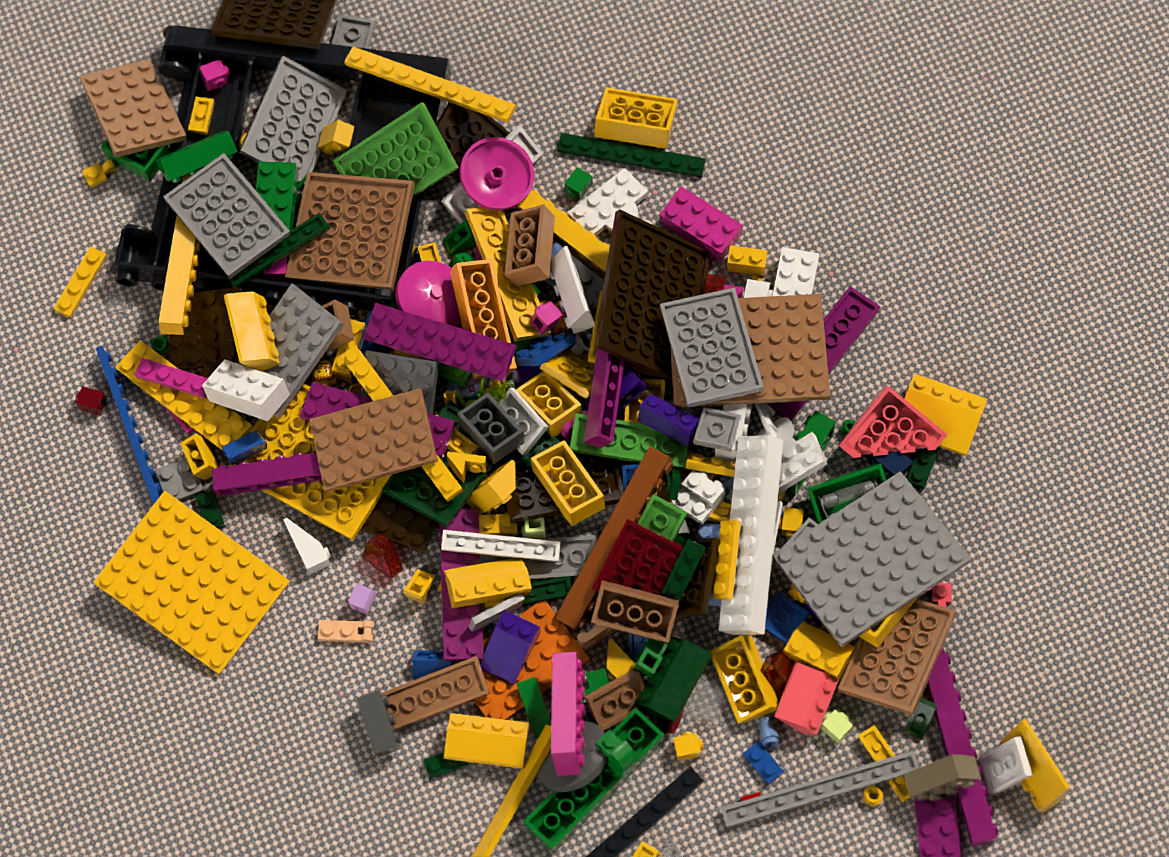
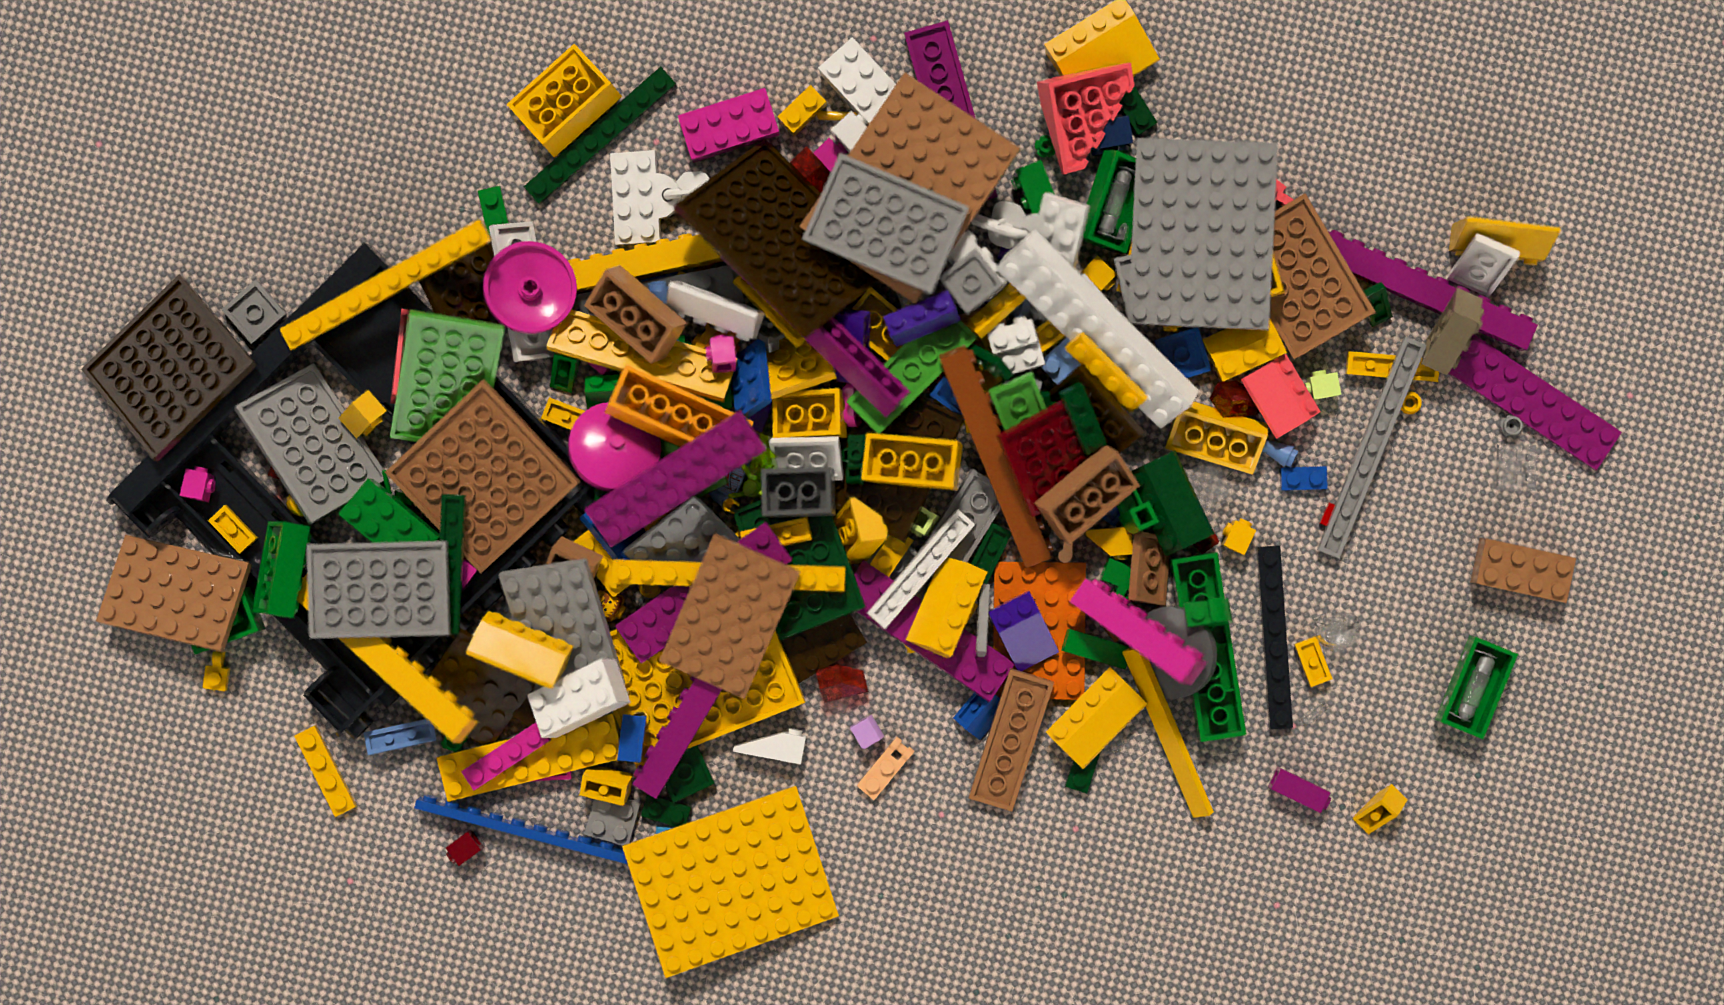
camera: 60 degrees left, 20 degrees up
(136, 308) = (399, 736): none -> medium blue plate
(246, 506) = (689, 775): none -> dark green plate
(379, 723) = (1005, 805): dark grey brick -> none
(419, 586) = (895, 669): yellow slope -> none
(462, 462) = (812, 547): yellow slope -> none
(535, 123) = (493, 206): none -> green plate
(578, 184) = (593, 212): green brick -> none

